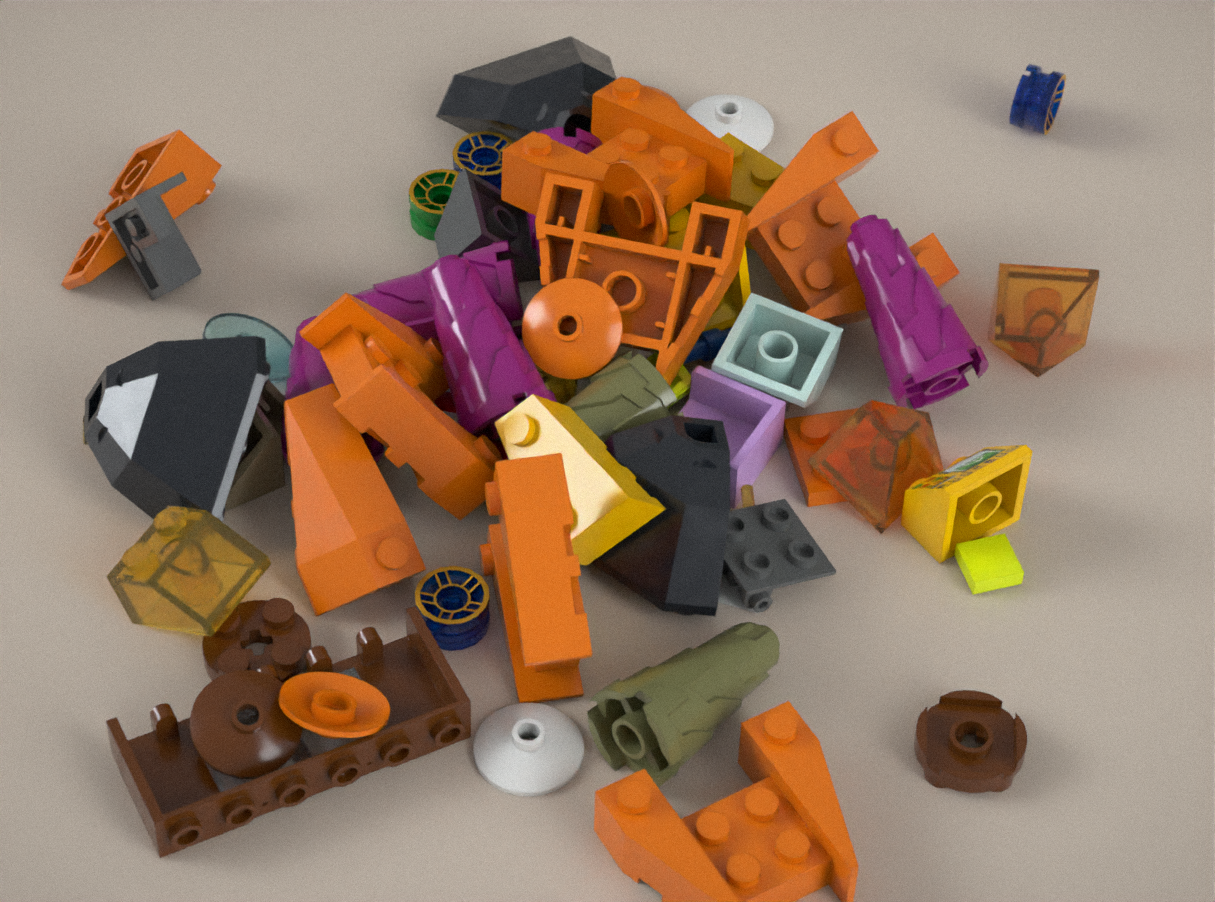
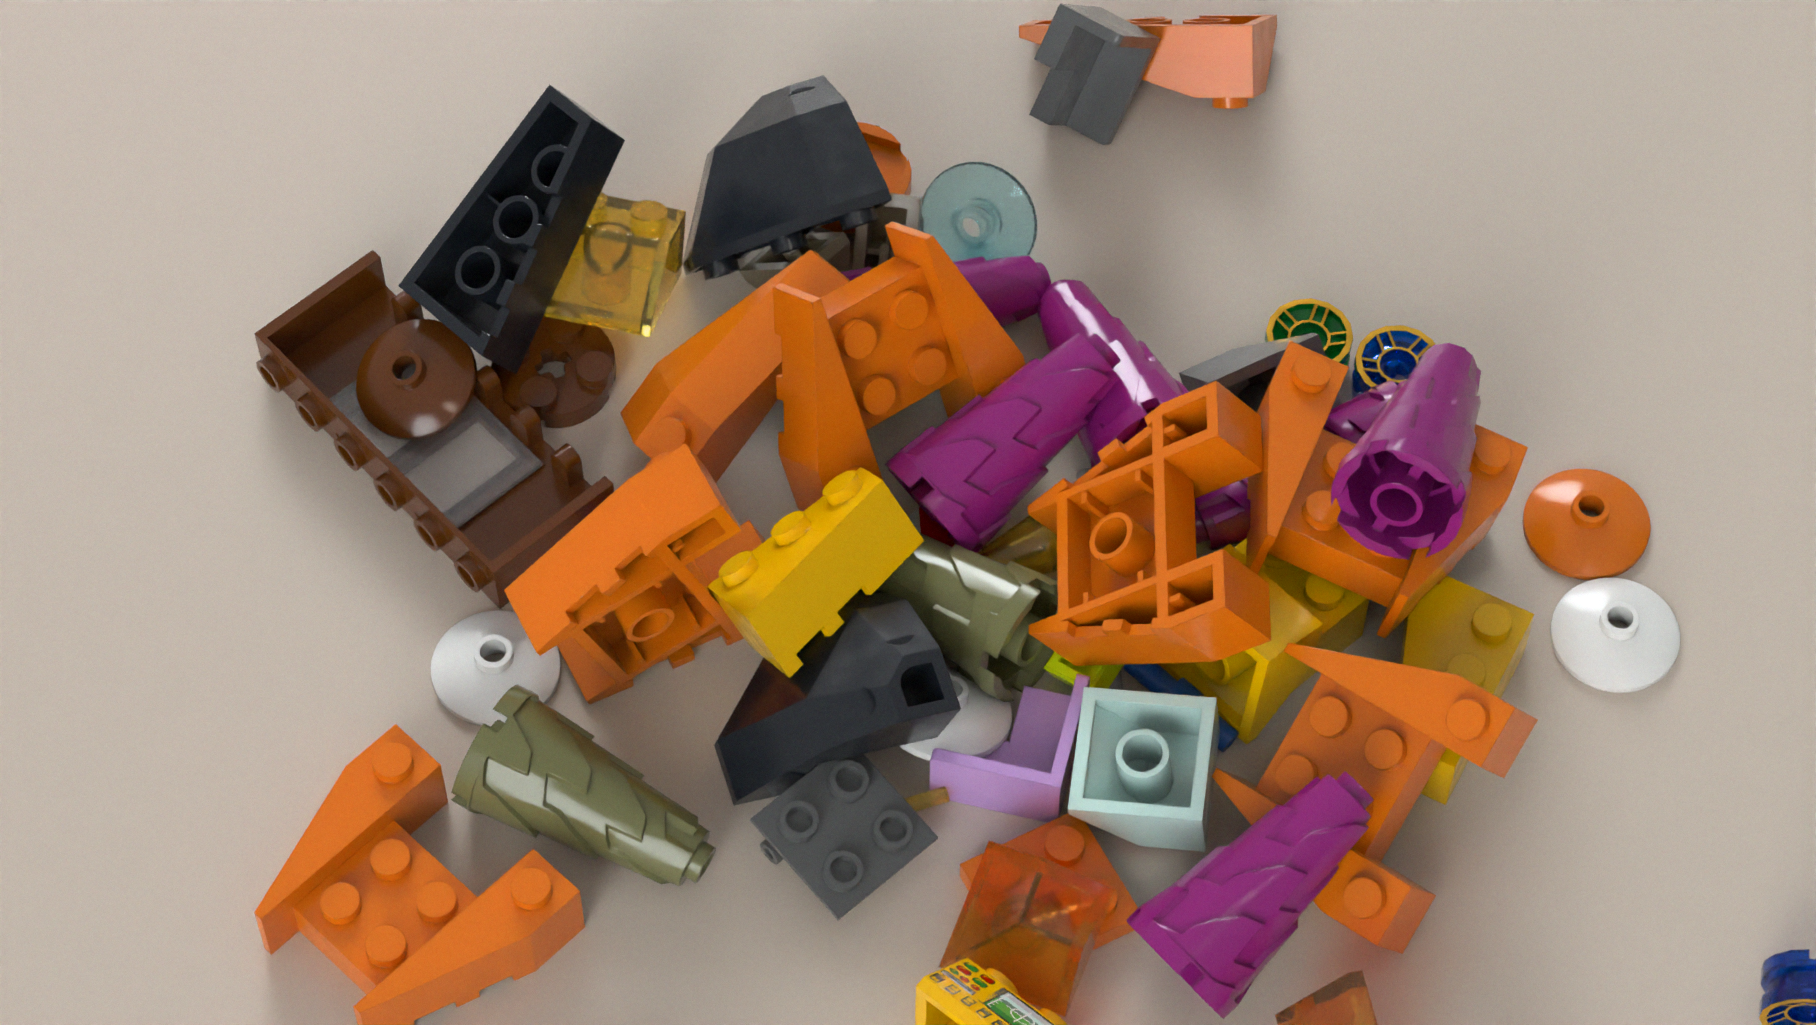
camera: 75 degrees right, 10 degrees up
(167, 597) = (516, 230): none -> black wedge
(334, 704) = (469, 432): orange dish -> none
(529, 91) = (1550, 383): black brick -> none
(592, 343) = (1058, 511): orange dish -> none
(633, 104) = (1410, 470): none -> magenta cone
(634, 204) = (1231, 507): orange dish -> none

